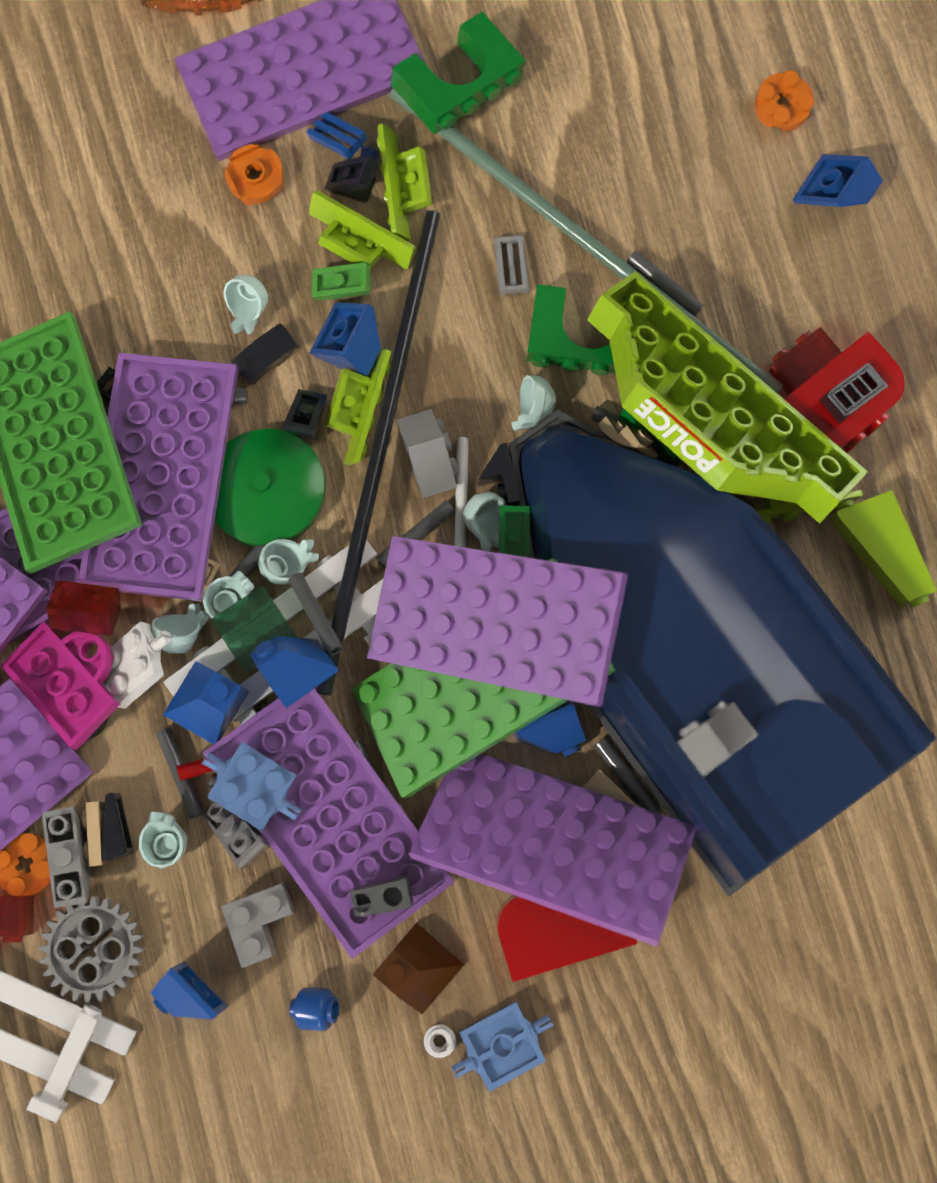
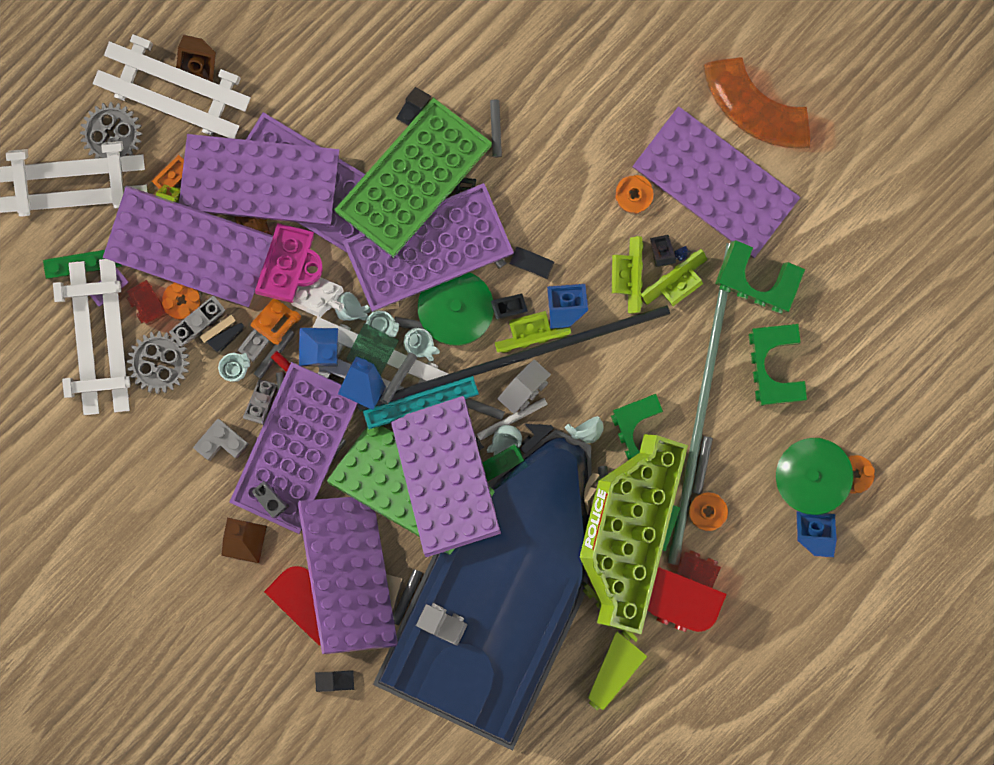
camera: 65 degrees right, 5 degrees up
(57, 302) = (495, 128): none -> dark grey piece
(84, 608) = (332, 252): clear red brick -> none
(124, 746) = (270, 318): none -> orange plate
(146, 786) = (254, 344): none -> light grey plate
(186, 995) = (162, 426): blue slope -> none
(246, 301) = (555, 235): light aqua piece -> none
(251, 786) = (288, 398): medium blue plate -> none
(314, 1009) = (192, 497): blue head -> none
(323, 126) = (685, 214): blue tile -> none
(341, 281) = (596, 281): bright green hinge -> none
(357, 642) = (399, 408): none -> teal tile
(432, 1048) = (206, 572): white plate -> none
(502, 1046) = (228, 606): medium blue plate -> none
(513, 288) = (650, 380): light grey tile -> none
(554, 732) = (407, 543): blue slope -> none
(609, 145) = (770, 391): none -> green arch
(692, 949) = (334, 681): none -> black slope
(729, 292) = (699, 518): none -> orange plate
(760, 148) = (814, 476): none -> green dish
(835, 405) = (669, 597): black slope -> none

